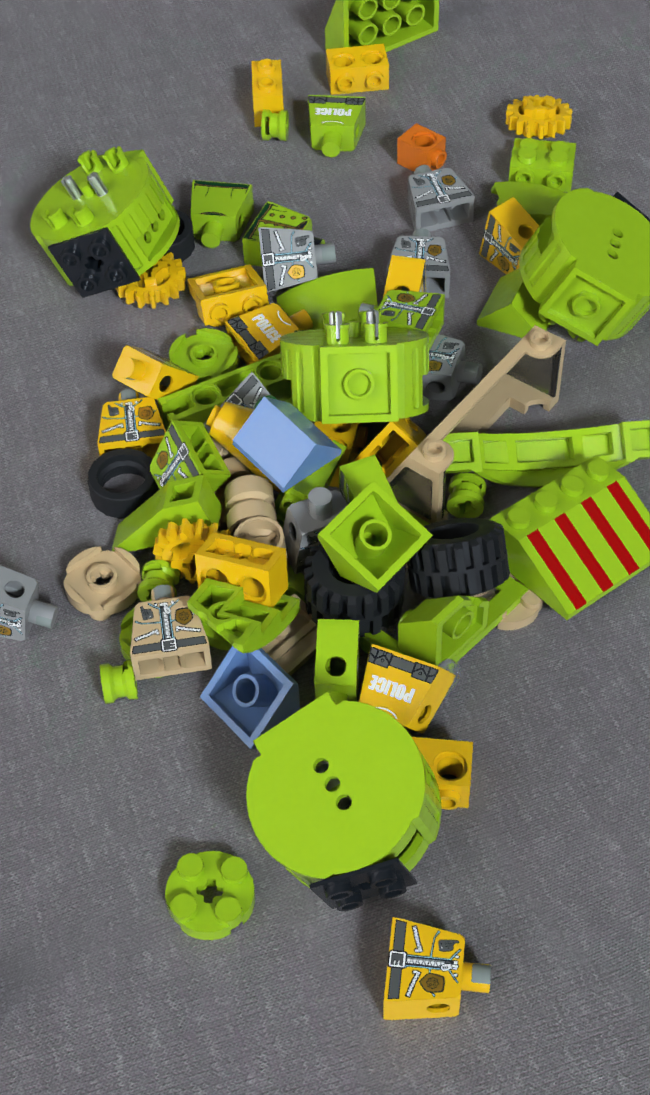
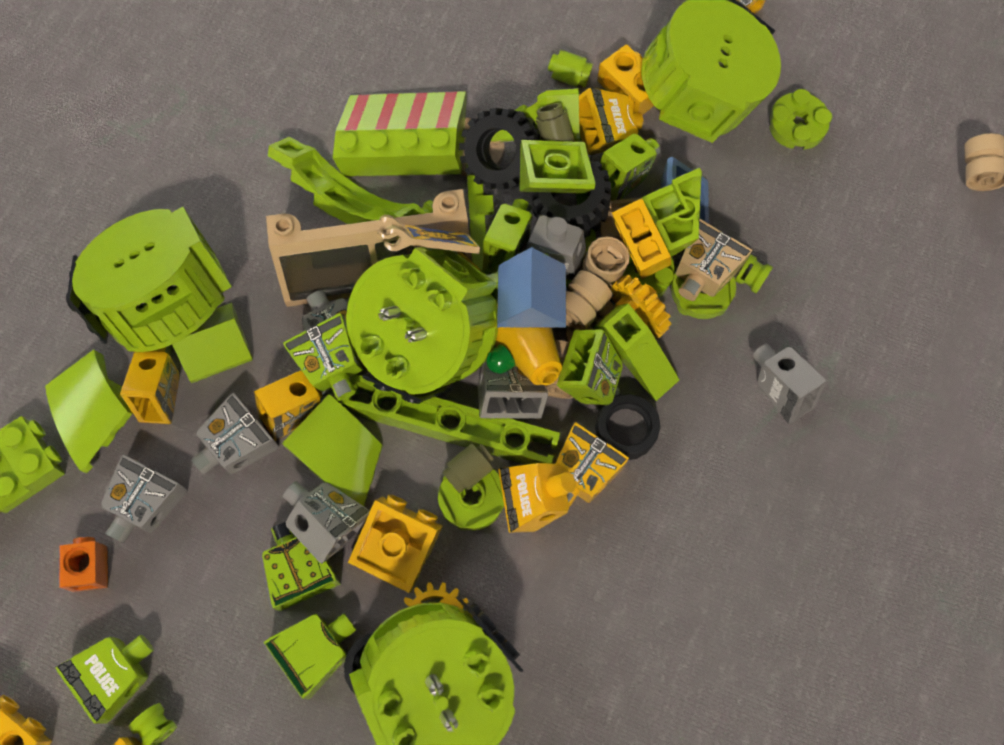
camera: 140 degrees left, 20 degrees up
(106, 599) = (717, 346): tan plate -> none
(155, 574) = (680, 320): lime wheel -> none
(220, 351) = (468, 467): none -> olive brick
(260, 330) = (413, 463): yellow torso -> none
(406, 404) = (426, 237): none -> tan flag
(421, 585) = (554, 123): none -> olive brick
(504, 734) = (570, 68): none -> lime brick

